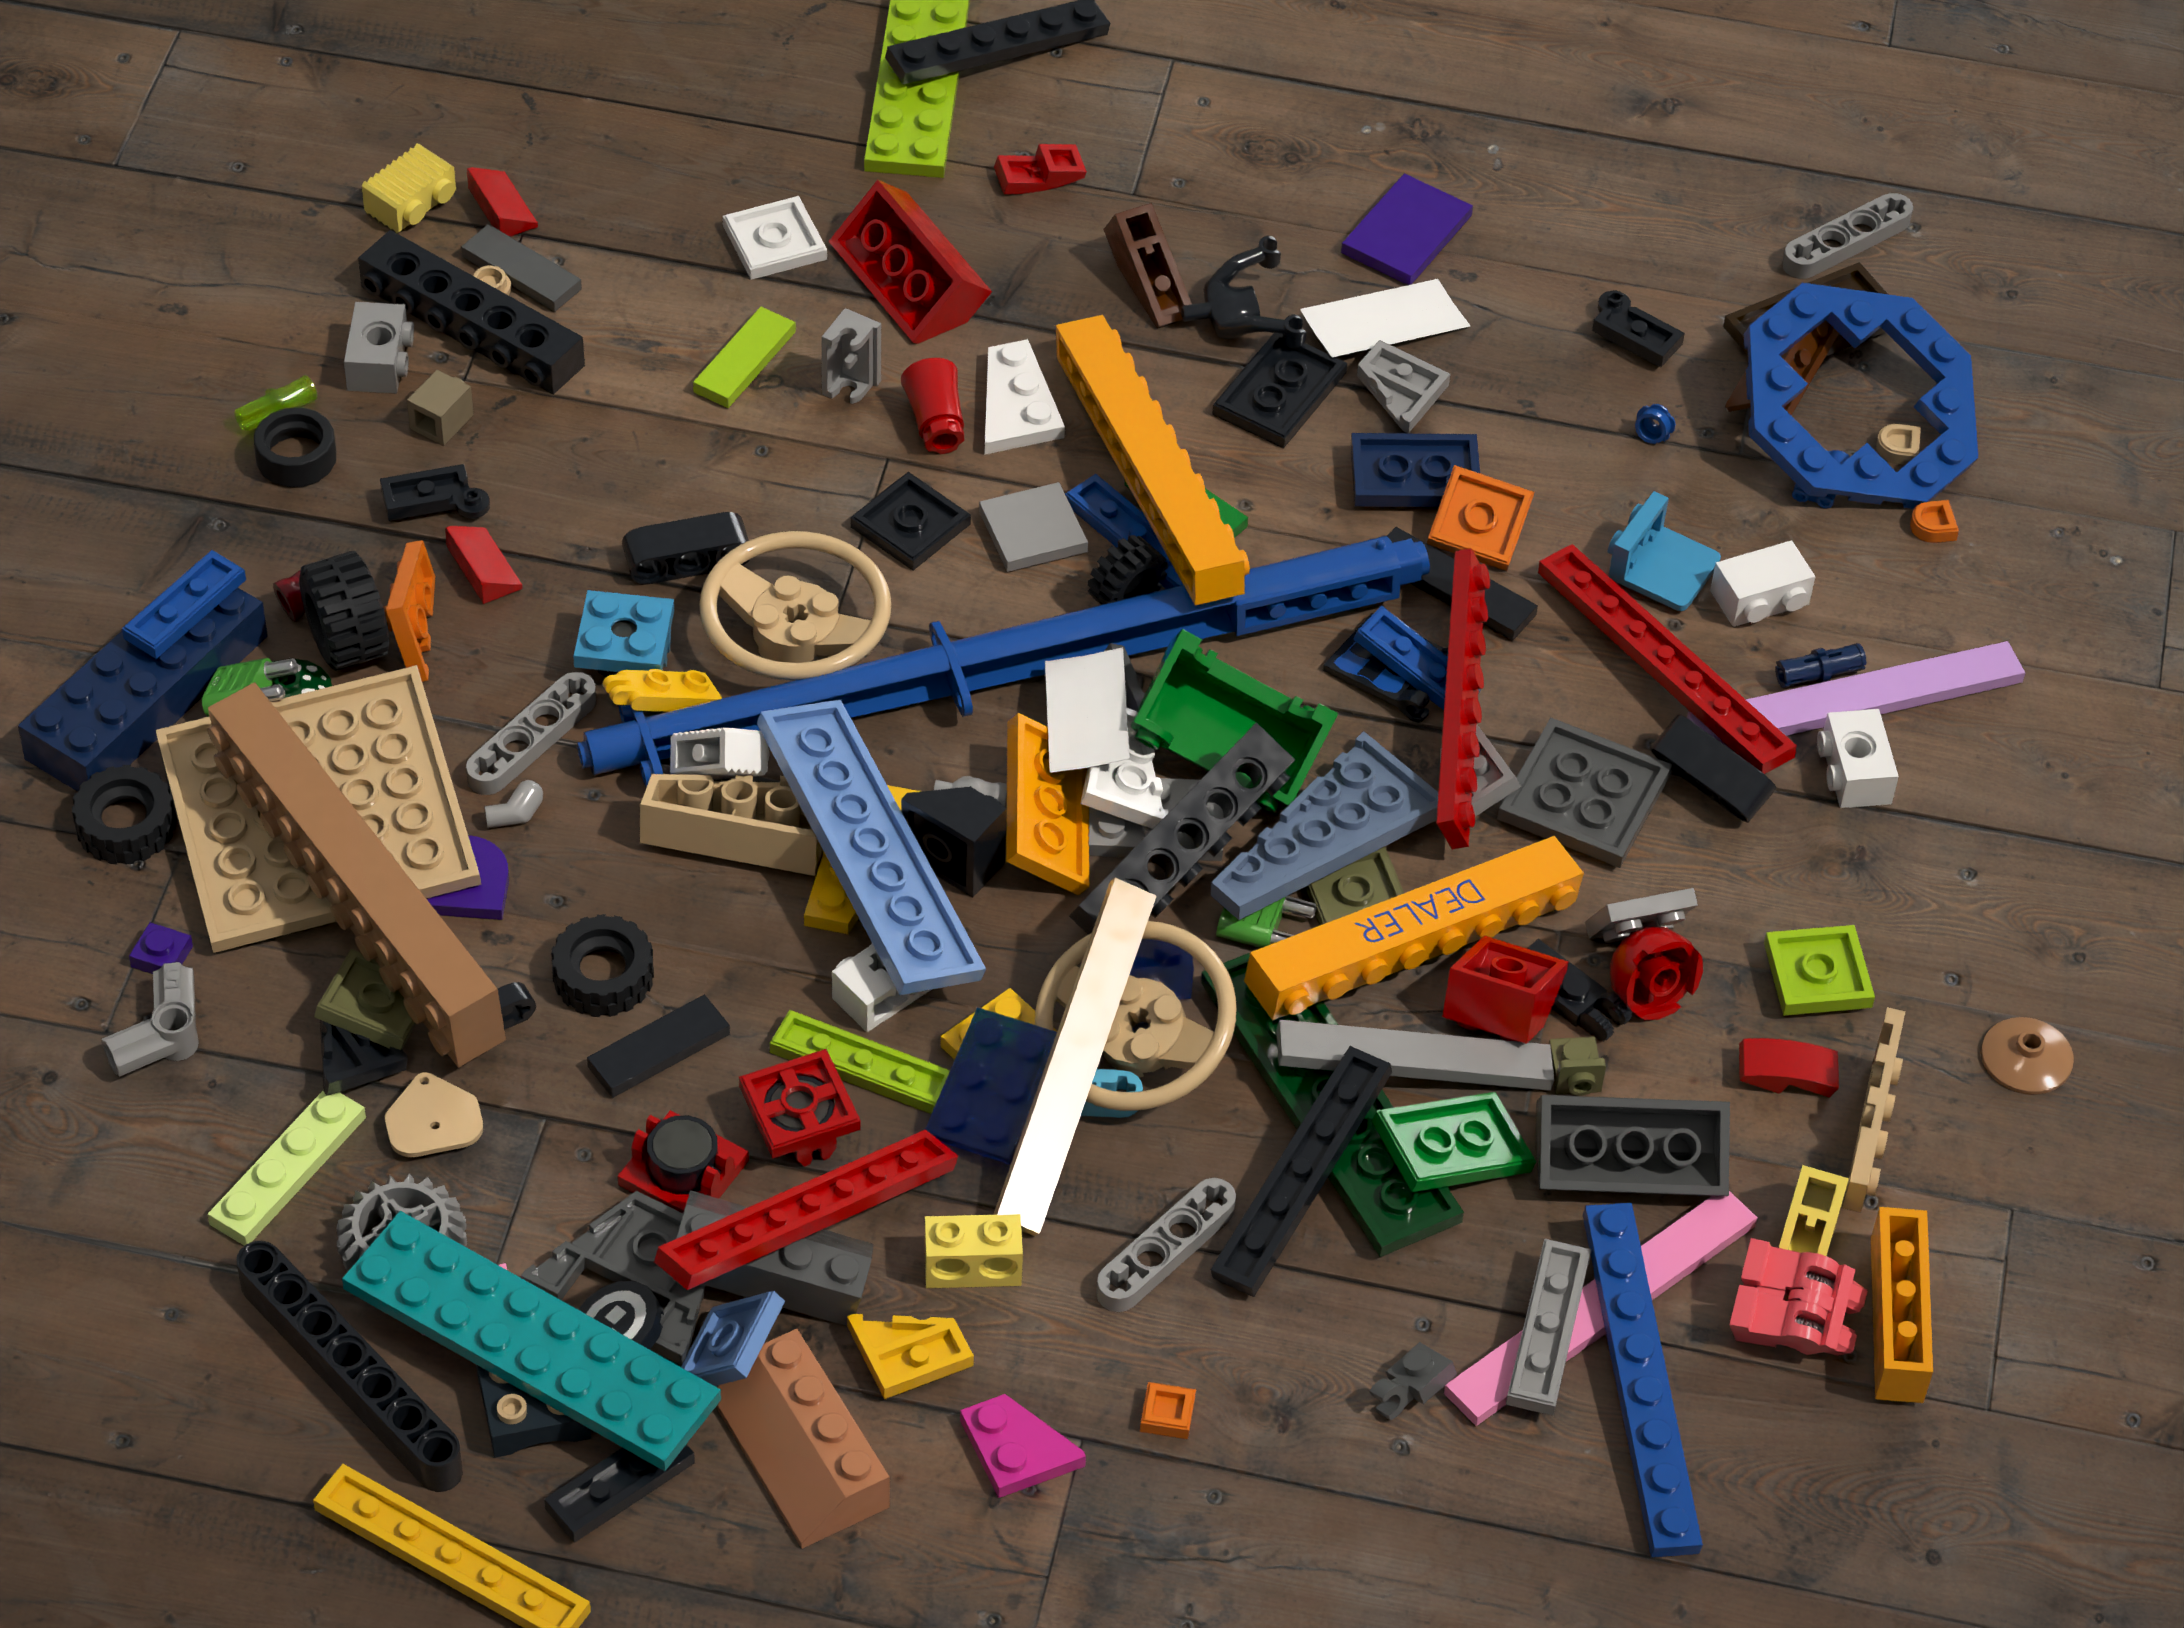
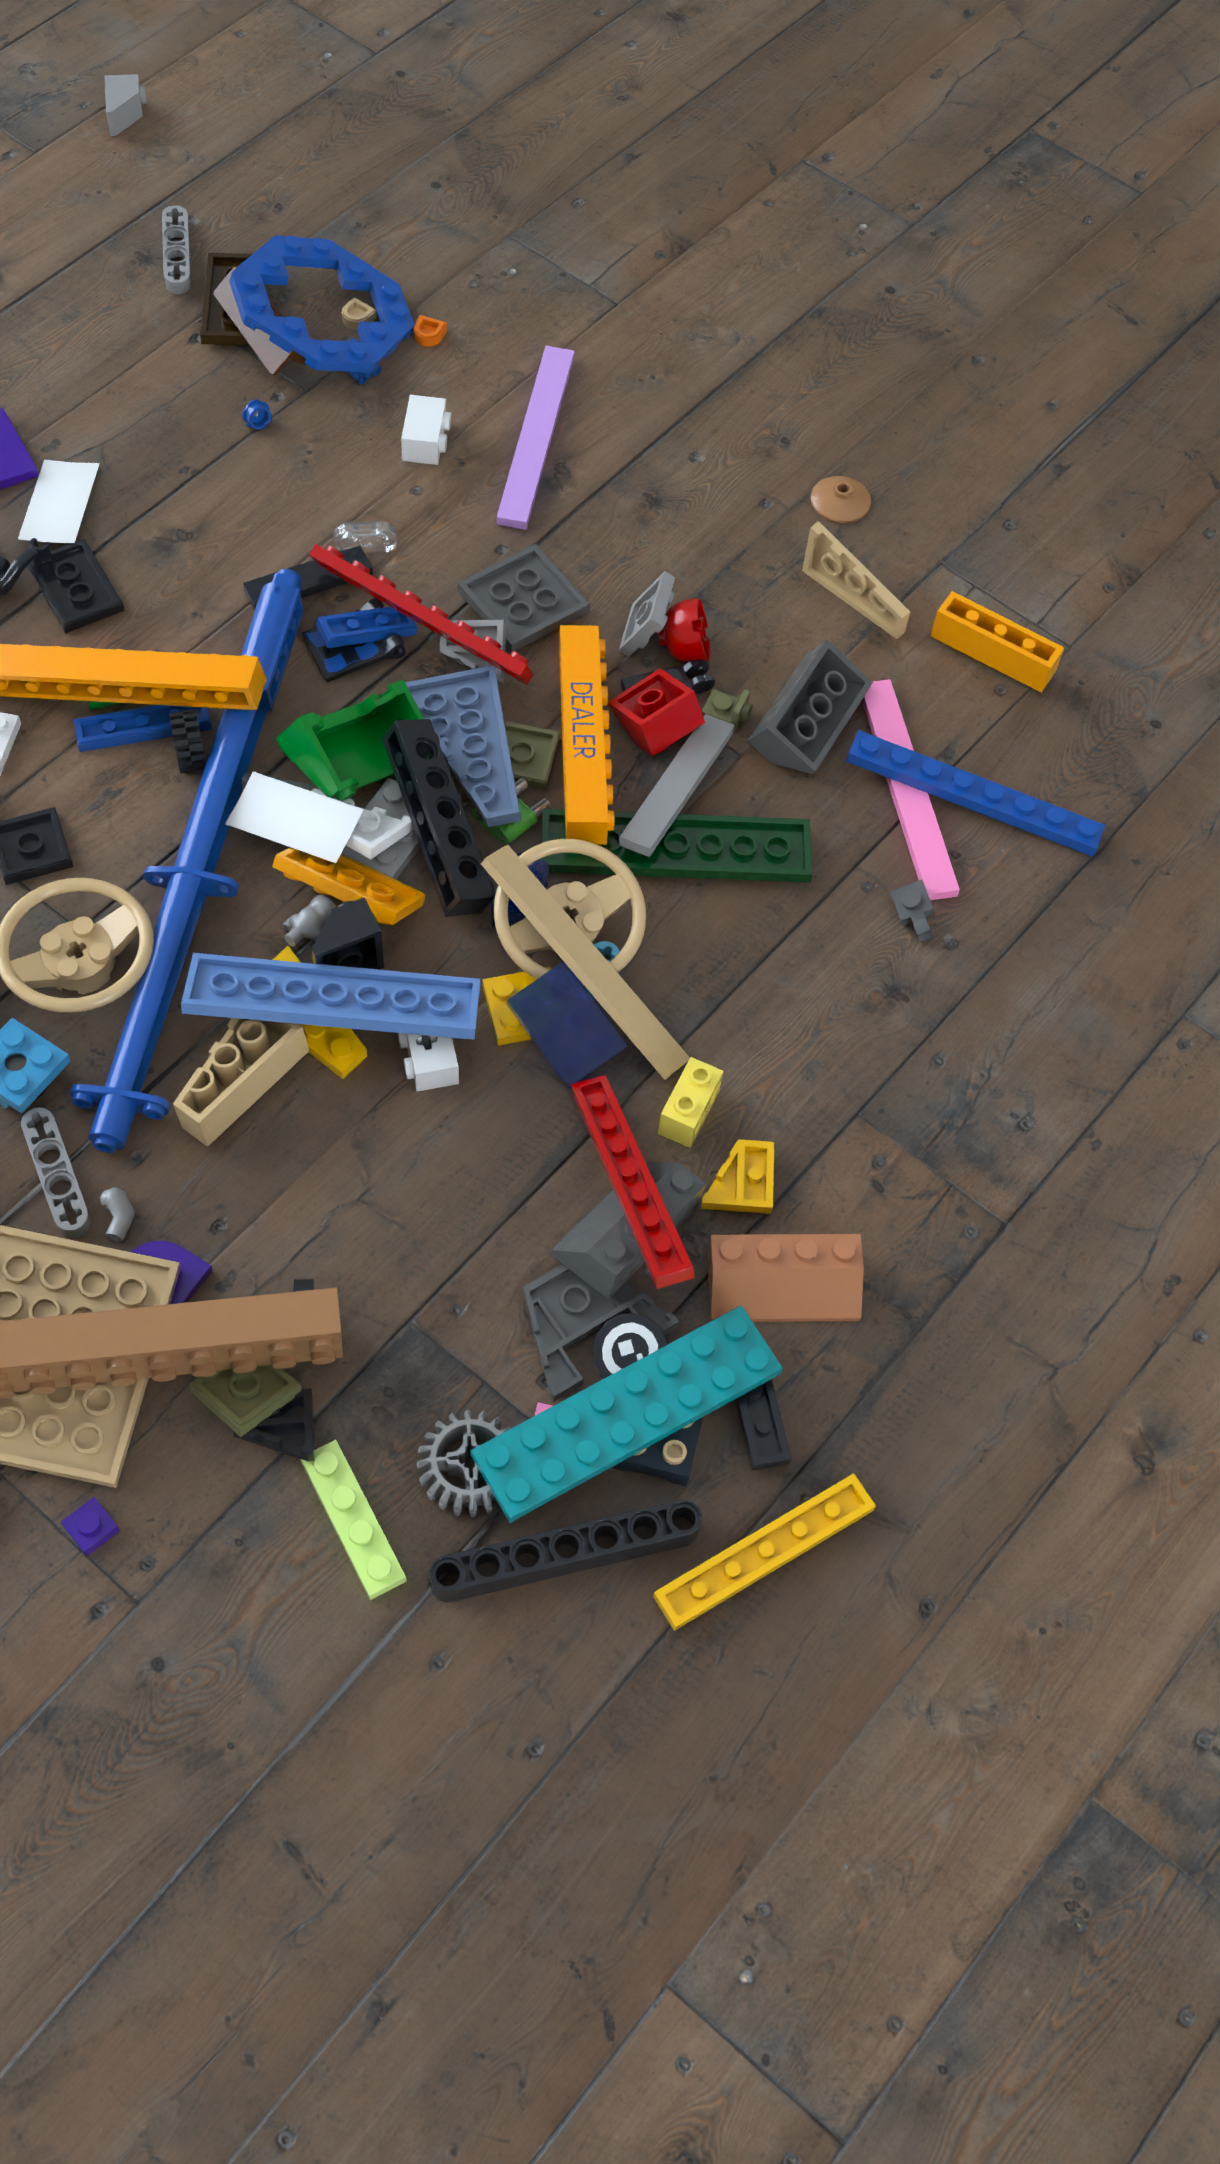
camera: 65 degrees left, 10 degrees up
(168, 1033) = (179, 1571): light grey piece -> none
(433, 1118) = (360, 1396): tan piece -> none
(597, 935) = (299, 1193): black tyre -> none
(658, 1046) = (396, 1218): black tile -> none
(660, 689) = (88, 1064): yellow hinge -> none
(681, 1157) = (509, 1248): piece -> none
(719, 753) = (180, 1054): white brick -> none
(732, 1338) = (699, 1298): medium blue tile -> none
(800, 1106) = (512, 1150): red piece -> none
(862, 1061) = (486, 1097): lime tile -> none
(1017, 1445) = (847, 1153): dark pink wing -> none
(1033, 526) = (90, 777): light grey tile -> none
(1167, 1410) = (864, 1054): orange tile -> none
(1170, 1247) = (742, 990): light grey beam -> none
(1301, 1171) = (737, 886): black plate -> none
(1401, 383) = (124, 520): light grey wing -> none
(1408, 467) = (203, 549): dark blue plate -> none
(1453, 1141) = (753, 798): green tile -> none
(1480, 516) = (271, 535): orange tile -> none
(1548, 1327) = (917, 819): light grey tile -> none
(1555, 608) = (372, 536): none -> clear plate
(1636, 329) = (172, 383): black hinge -> none
(1659, 559) = (368, 468): dark azure bracket -> none
(1667, 659) = (456, 502): red plate -> none
(1713, 768) = (552, 525): black beam -> none
(1781, 1063) = (789, 607): red slope -> none
(1813, 1211) = (919, 661): light yellow slope -> none
(1817, 1297) = (969, 687): coral hips -> none
(1819, 970) = (729, 557): lime plate -> none
(1820, 665) = (503, 437): dark blue pin -> none
(1858, 758) = (588, 455): white brick -> none
(2028, 75) = (123, 101): none -> light grey slope

